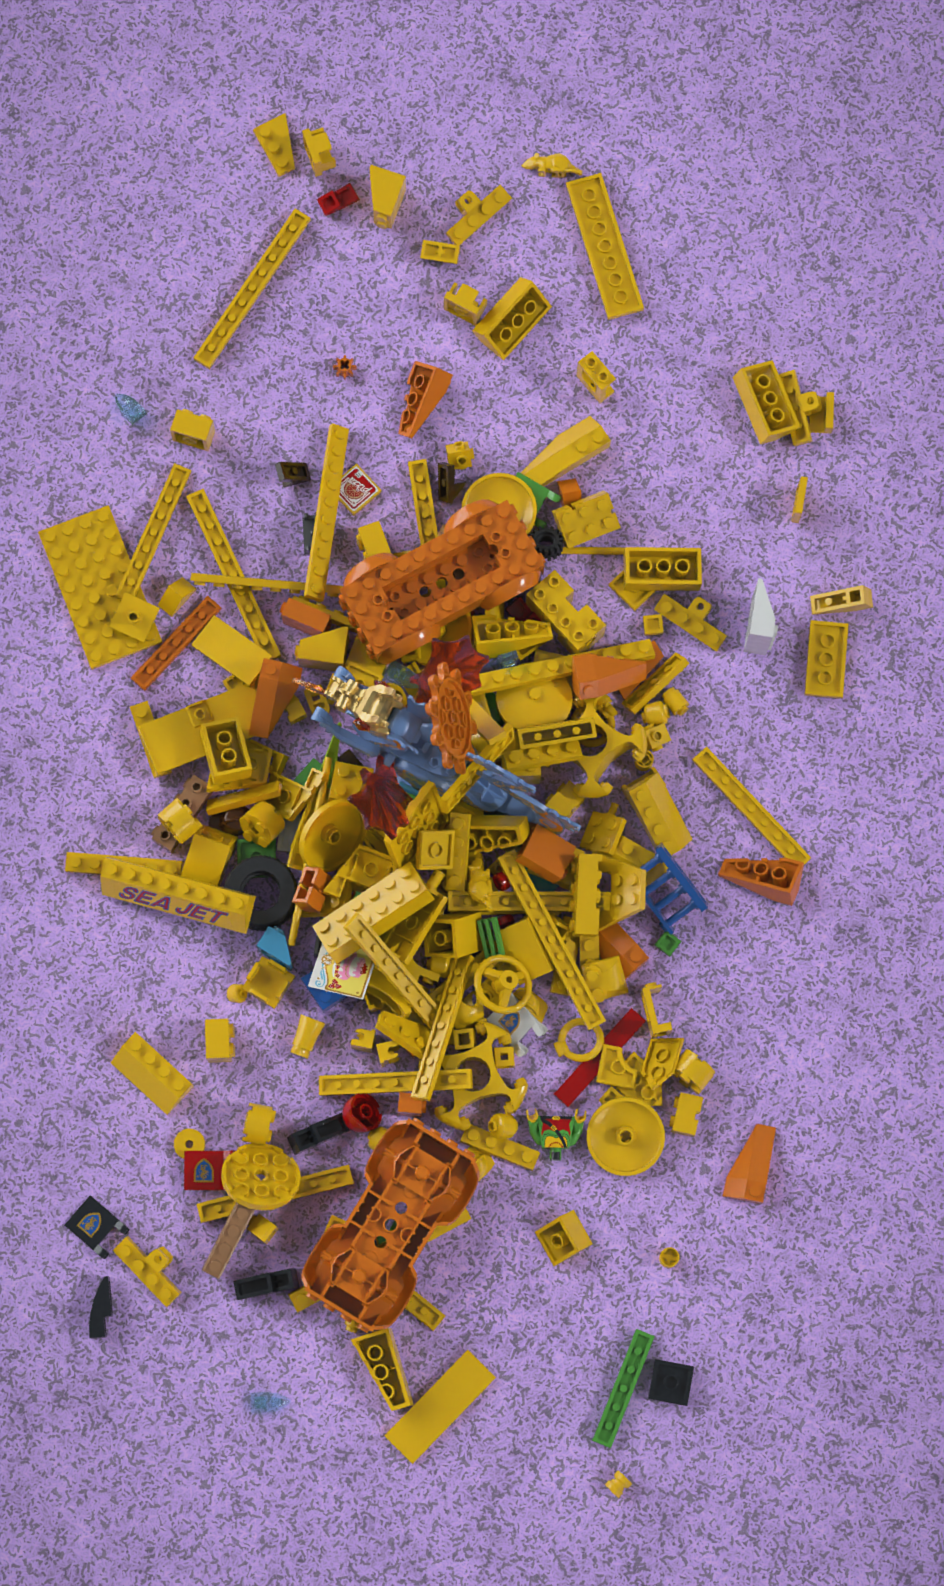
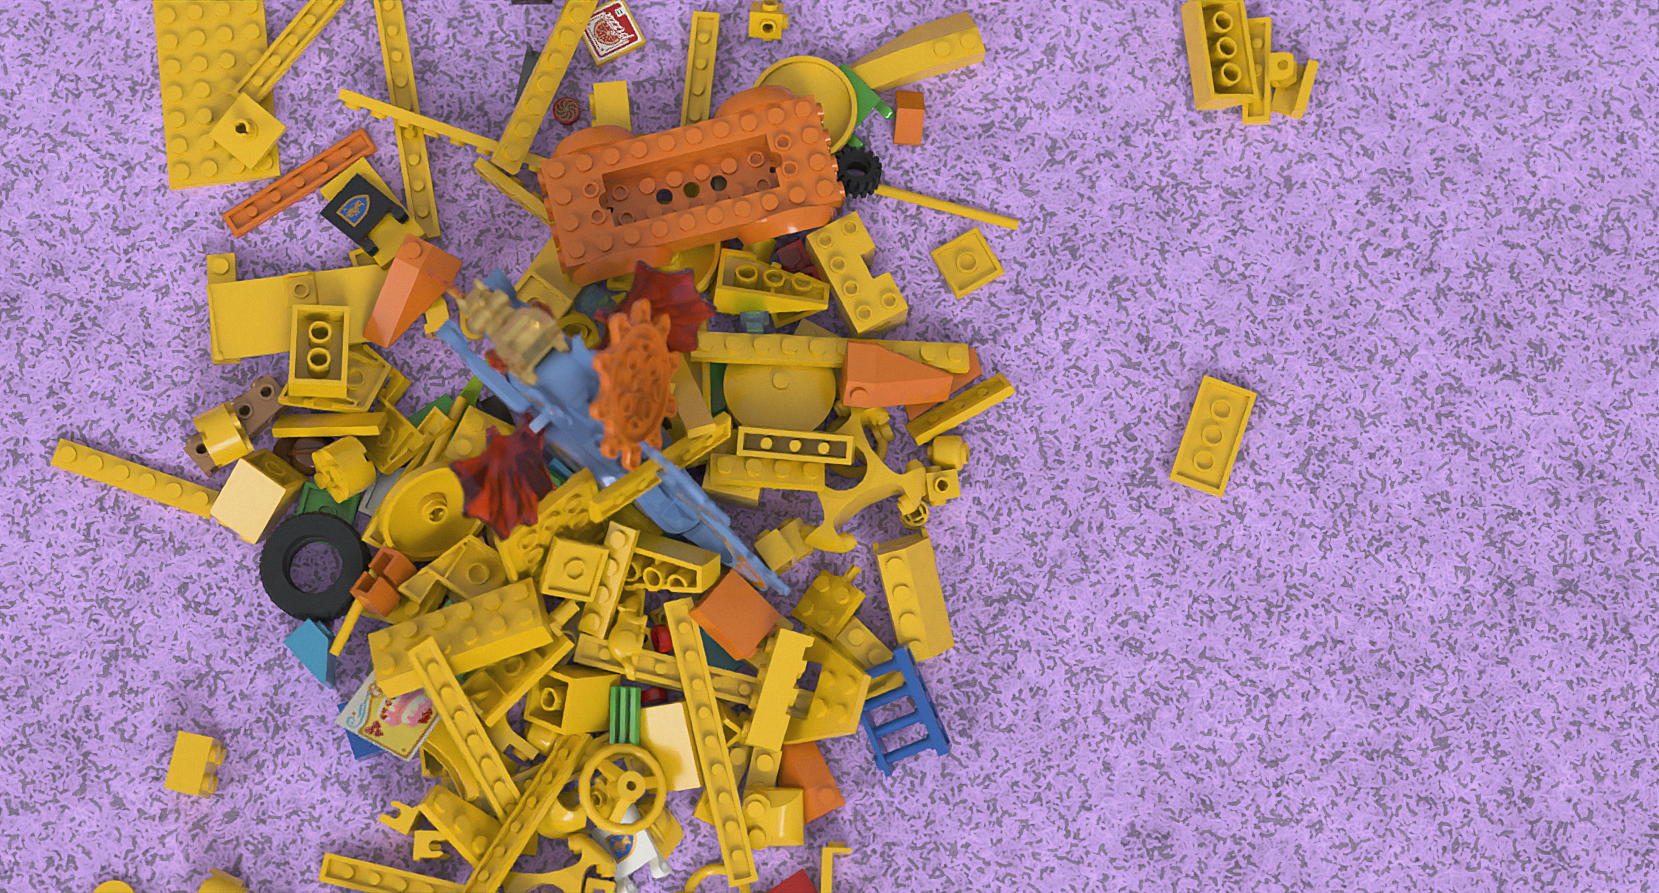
camera: 10 degrees right, 0 degrees up
(151, 1073) = (89, 786): yellow slope -> none
(176, 596) = (318, 116): yellow slope -> none
(176, 894) = (192, 538): yellow slope -> none
(223, 651) = (359, 210): none -> black flag
(236, 993) = (244, 702): yellow piece -> none
(268, 981) = (292, 697): yellow panel -> none
(305, 617) = (488, 193): orange brick -> none
(306, 1036) = (323, 789): yellow plant -> none
(323, 650) = (502, 243): yellow slope -> none
(341, 550) = (566, 111): none -> tile
(447, 484) = (740, 59): dark brown slope -> none
(465, 1039) = (549, 853): yellow brick -> none
(587, 521) = (924, 154): yellow piece -> none
(653, 624) = (978, 325): yellow plate -> none
(662, 569) = (1011, 249): yellow brick -> none
(667, 943) = (879, 788): bright green tile -> none
(675, 701) = (981, 442): yellow brick -> none
(692, 619) = (1035, 332): yellow plate -> none
(749, 806) = (1050, 624): yellow plate -> none
(761, 622) = (1131, 363): white slope -> none
(773, 879) = (1051, 731): orange wedge -> none
(799, 499) = (1231, 200): yellow tile -> none
(842, 600) = (1256, 358): yellow slope -> none

